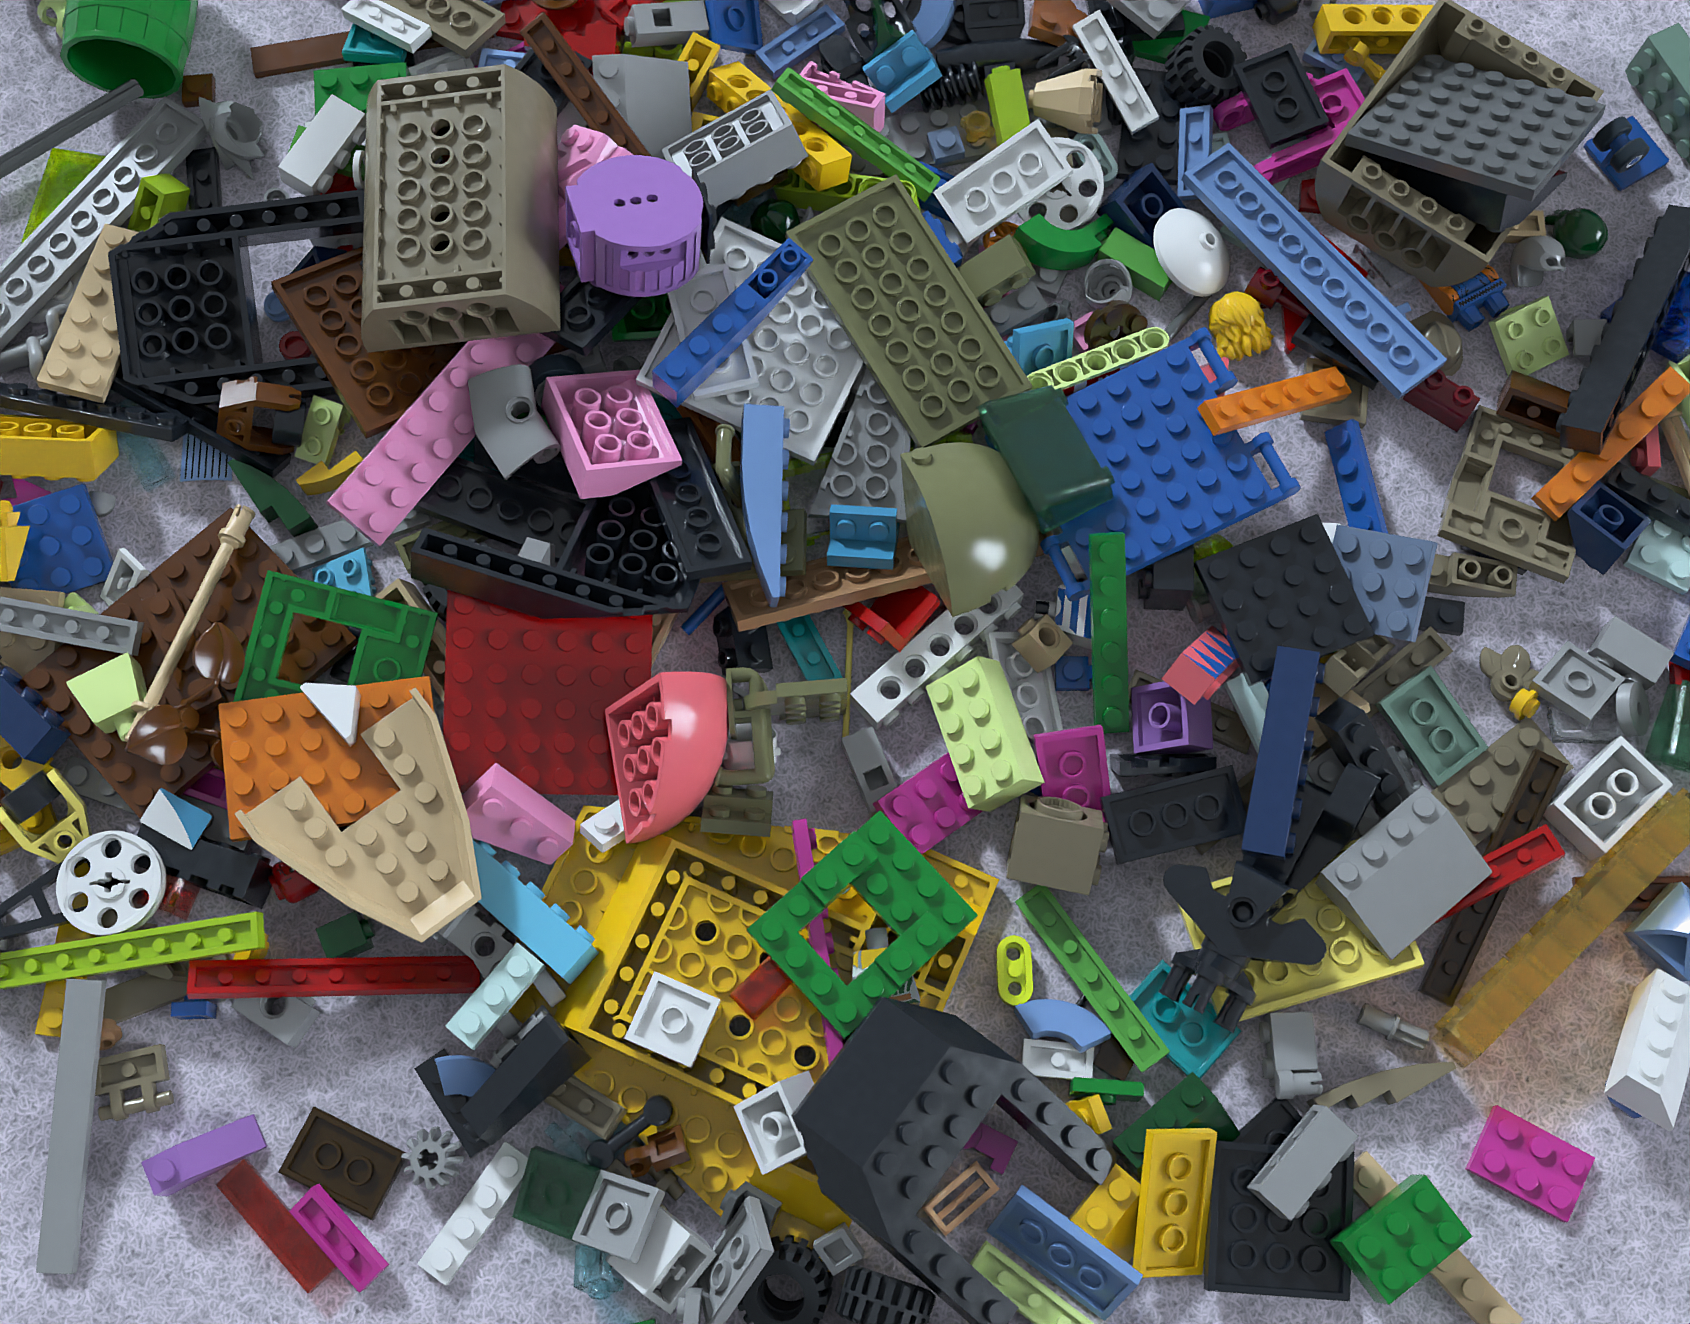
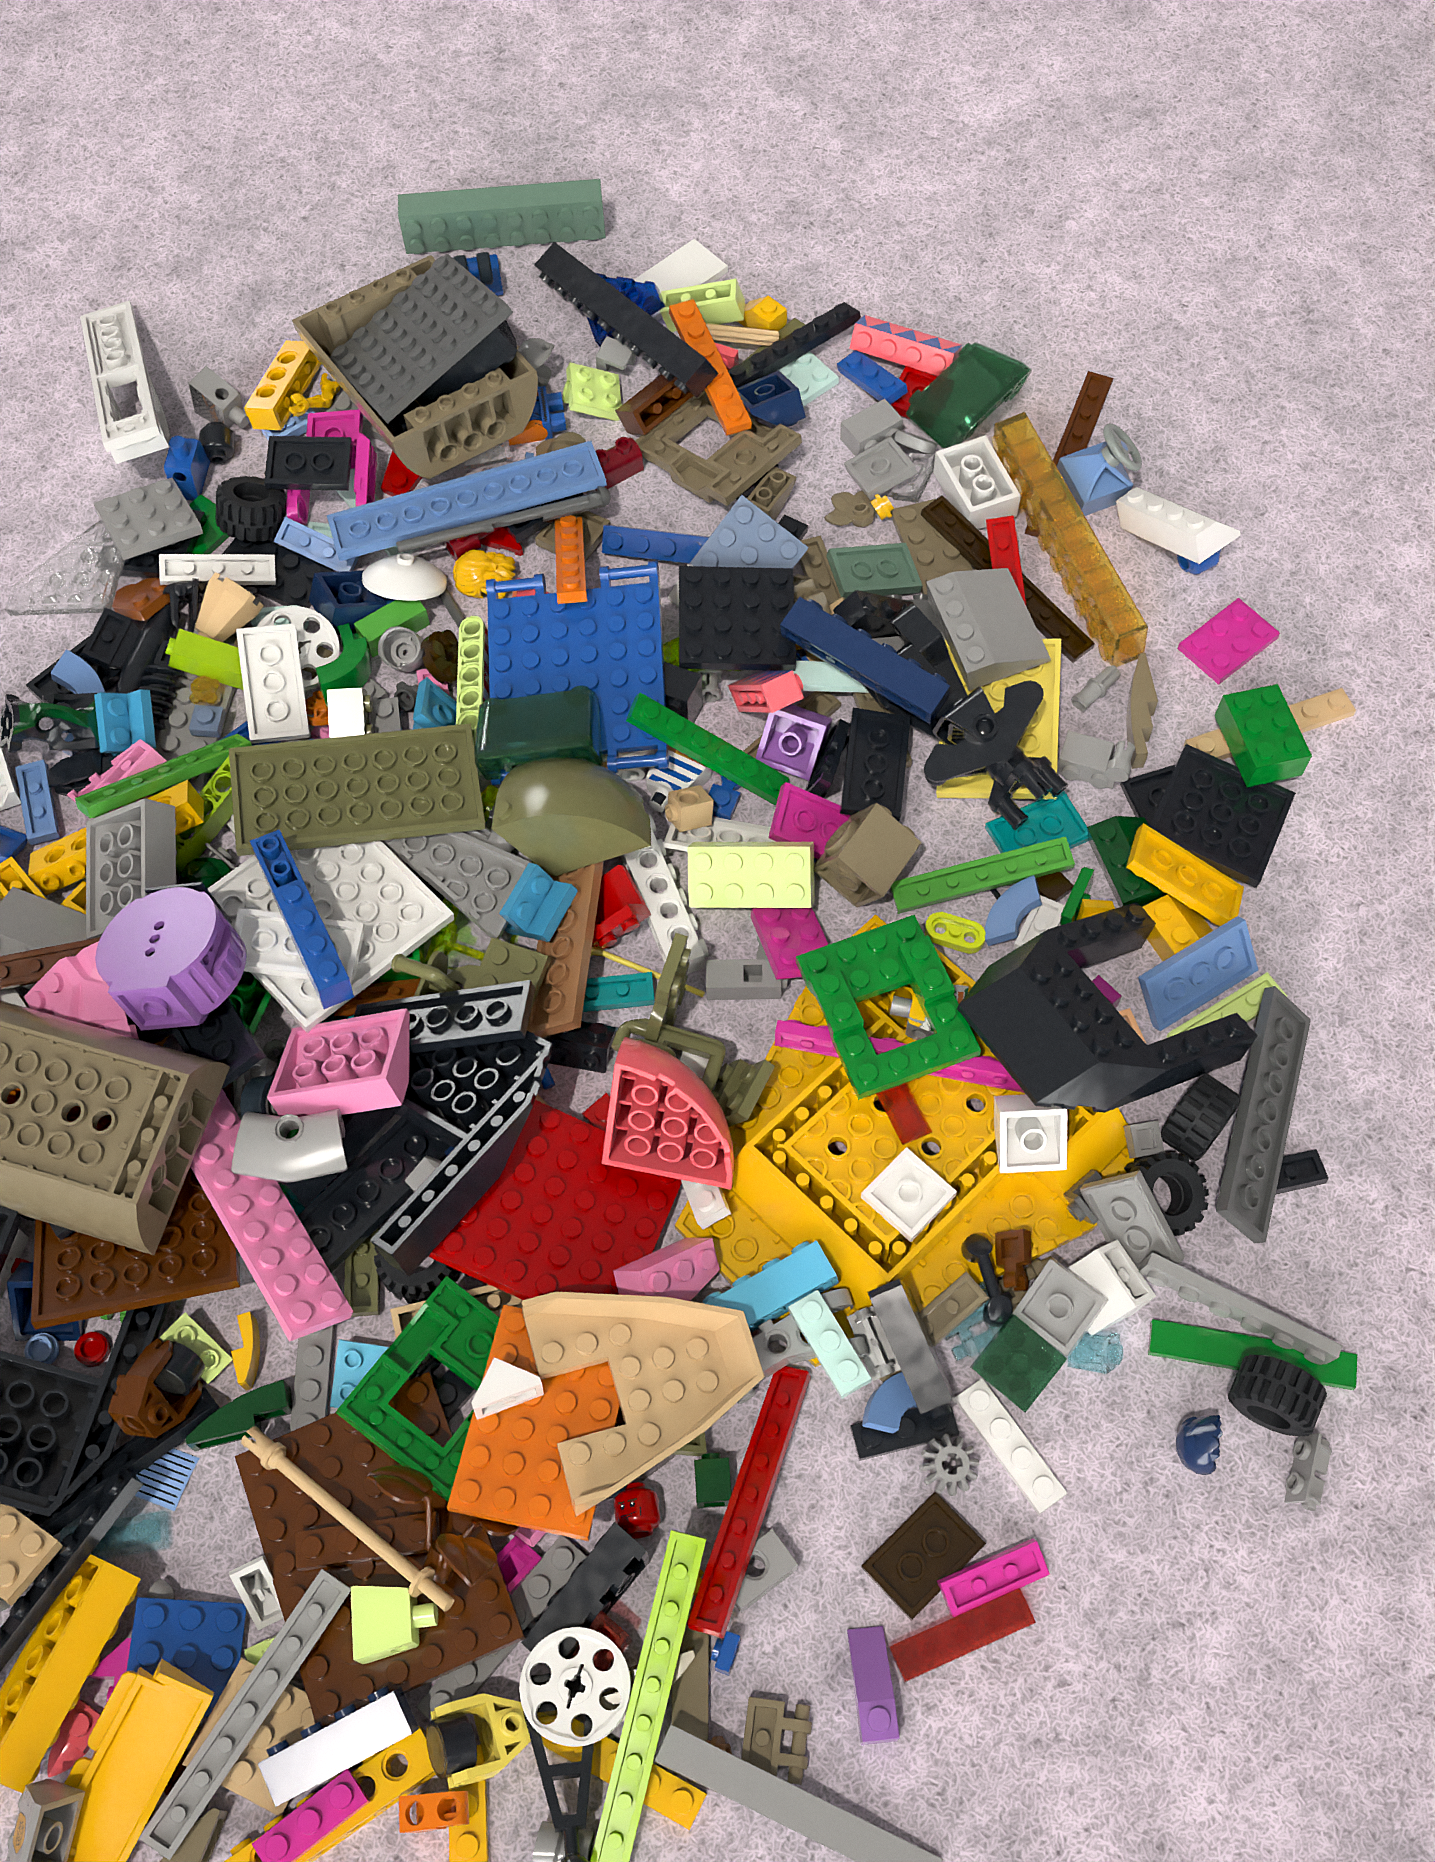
camera: 65 degrees left, 10 degrees down
(176, 818) = (537, 1599): sticker -> none
(763, 492) = (468, 955): medium blue slope -> none
(1303, 1162) = (1185, 775): light grey brick -> none
(1335, 354) = (548, 512): none -> dark grey bar
(1578, 231) = (527, 324): dark green hat -> none

